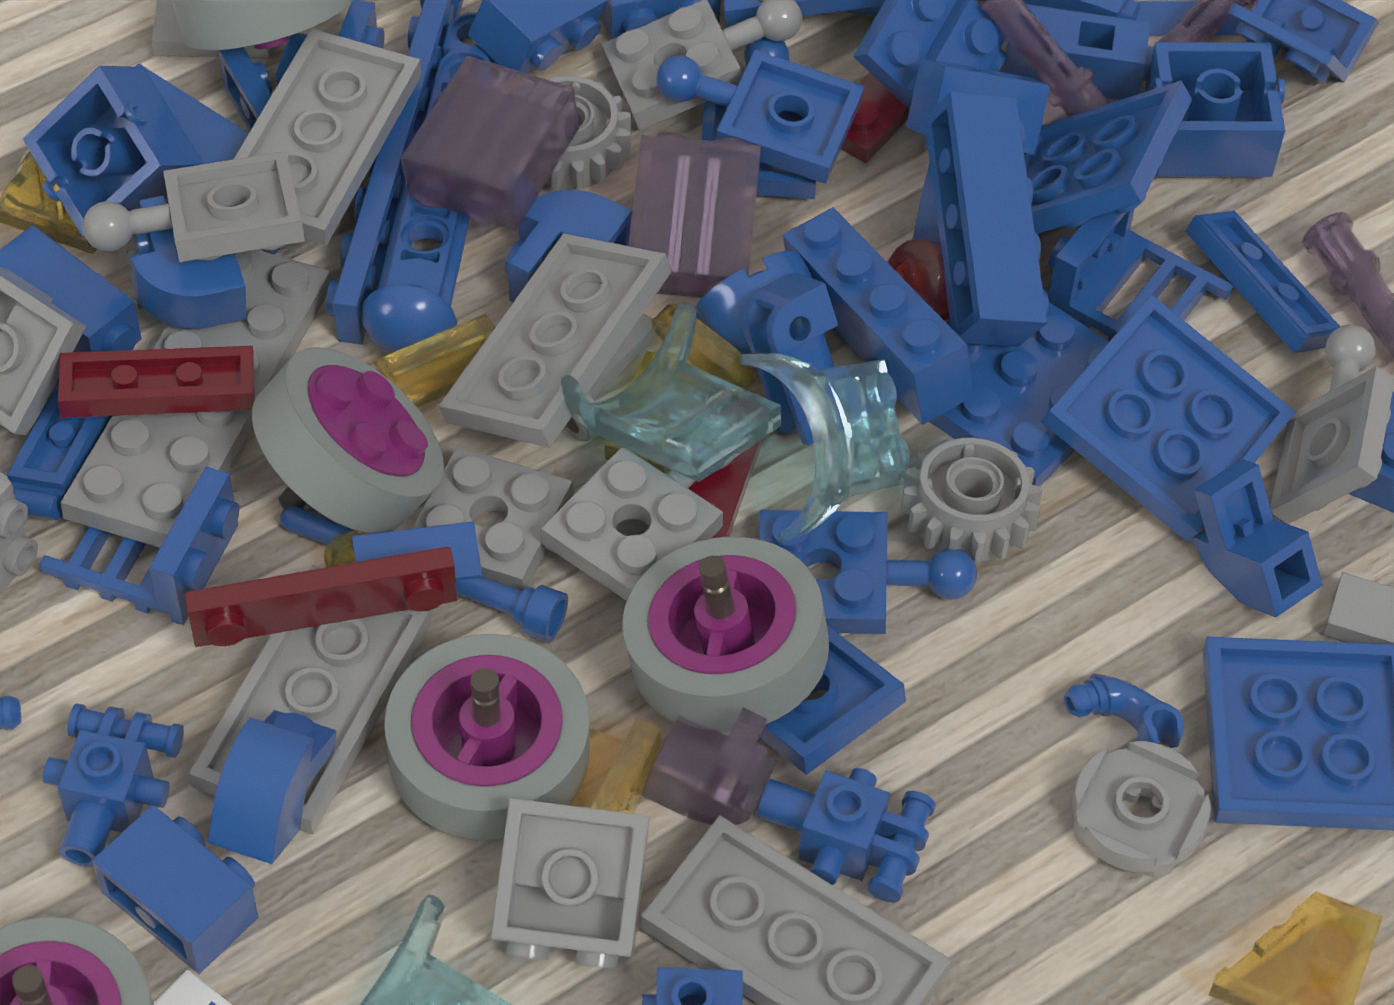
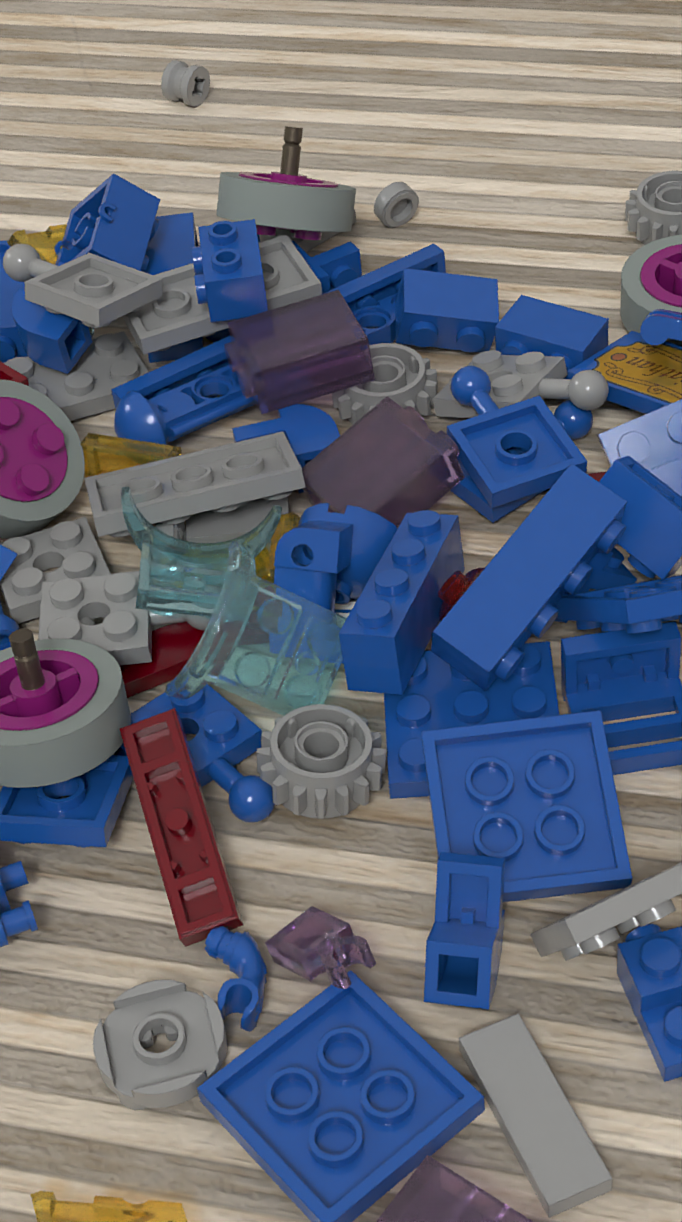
camera: 55 degrees right, 10 degrees down
(344, 98) = (229, 270): none -> blue brick
(946, 635) = (180, 827): none -> dark red plate
(1157, 638) = (318, 945): none -> clear purple plate

